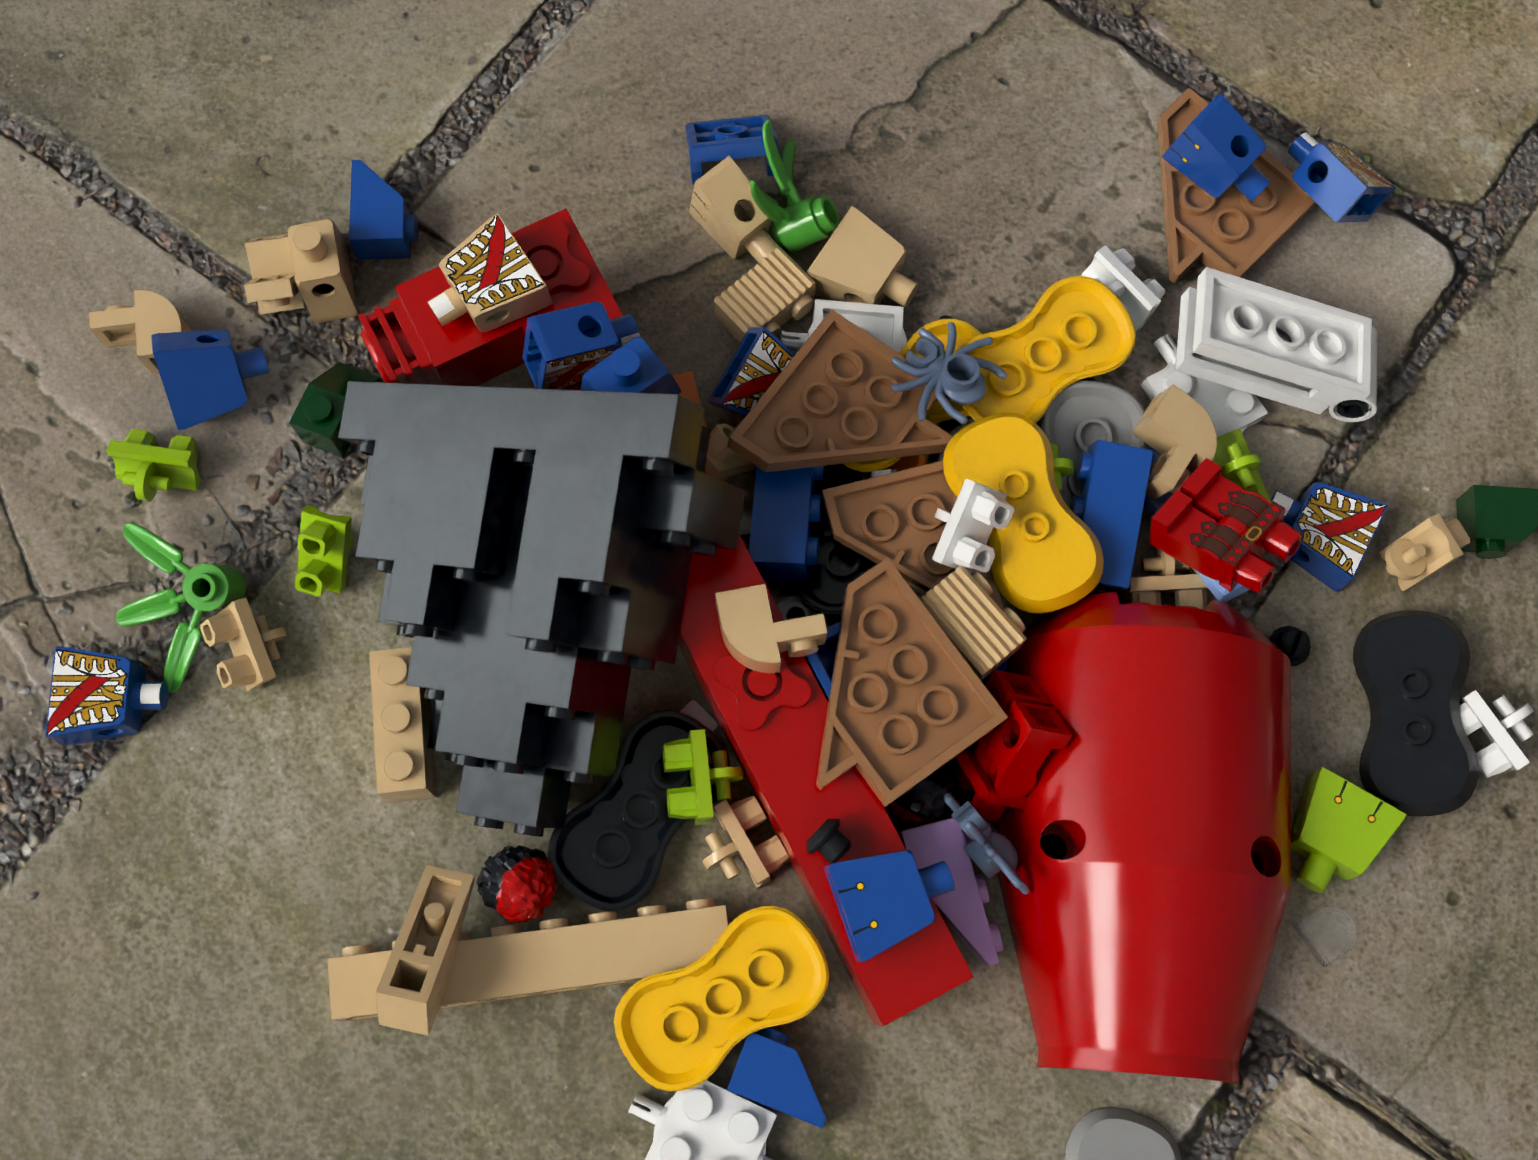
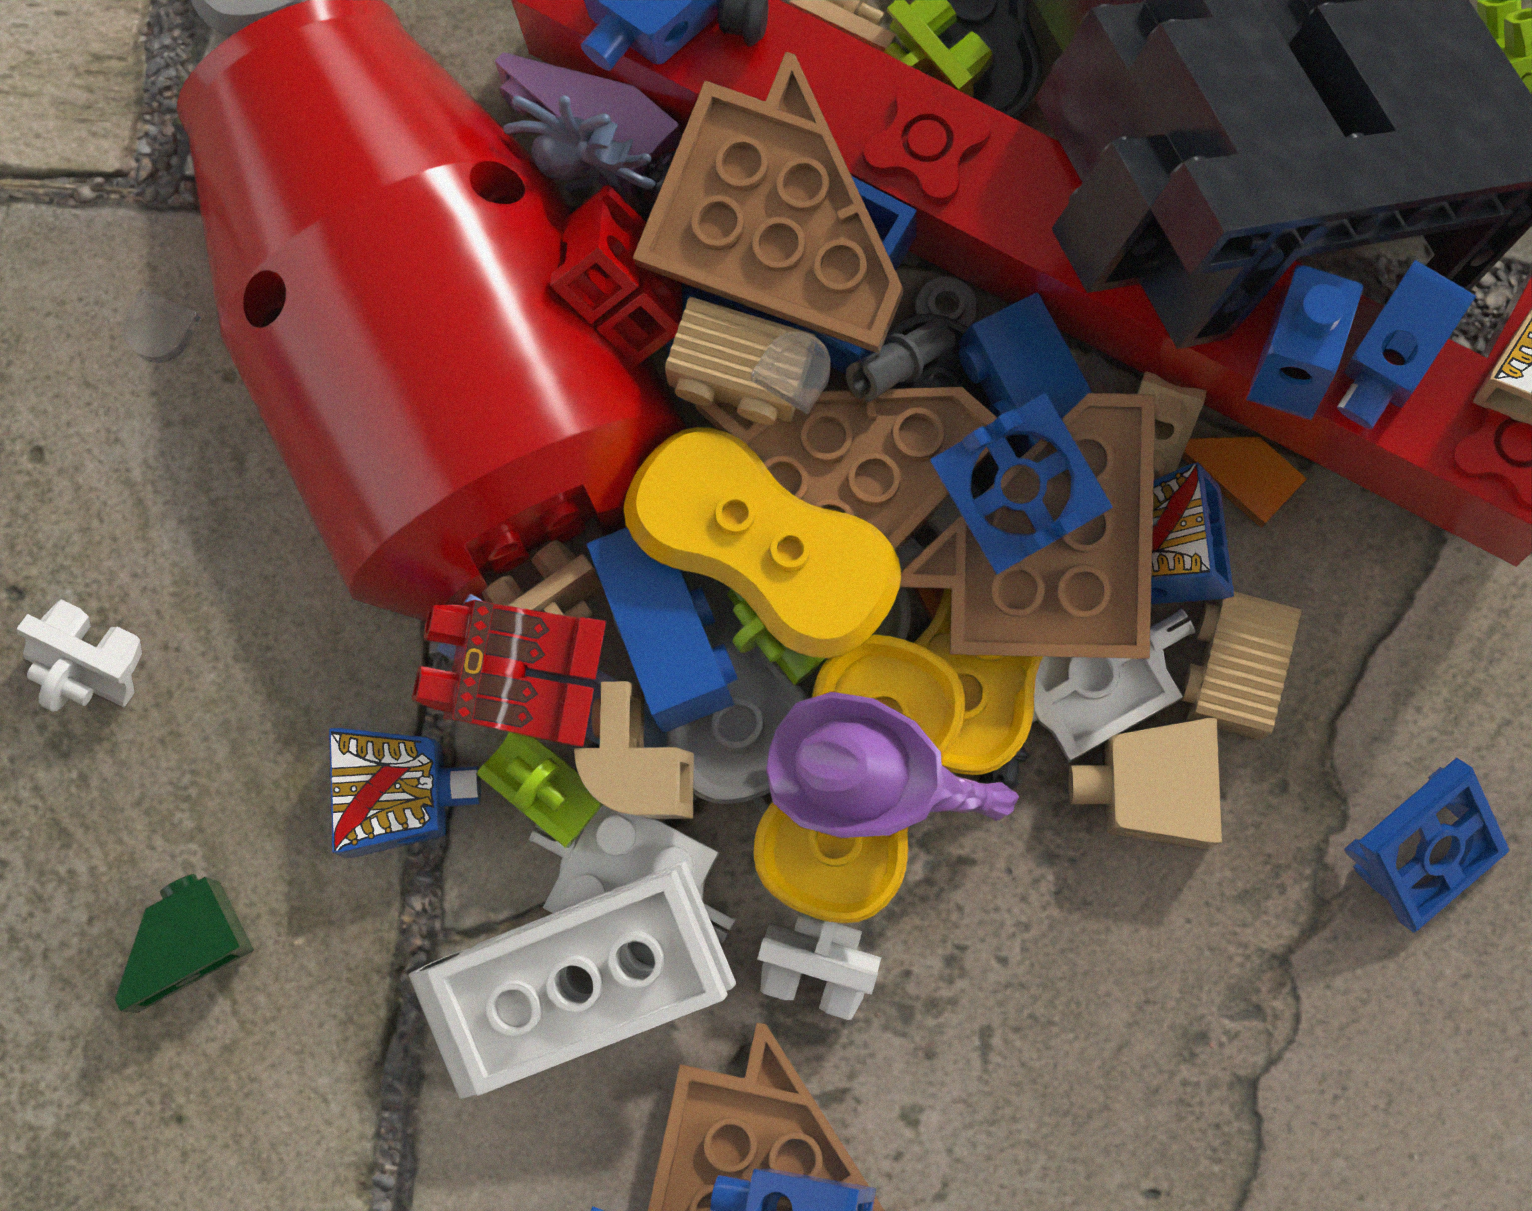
camera: 150 degrees right, 5 degrees up
(729, 214) = (1383, 738): tan torso -> none
(755, 639) = (962, 158): tan brick -> none
(802, 220) = (1276, 784): bright green plant -> none
(835, 580) = (899, 359): none -> dark grey axle
(840, 464) = (1038, 419): none -> blue piece
(948, 579) = (794, 369): none -> clear tile
(949, 373) = (956, 656): sand blue animal -> none
(970, 525) = (809, 464): white hips -> none
(1046, 340) = (866, 770): none -> medium lavender hat
(1293, 643) = (364, 628): black piece -> none
(1339, 829) = (199, 437): lime torso -> none
(1416, 739) = (198, 671): black plate -> none
(1424, 550) = (261, 817): tan hips -> none

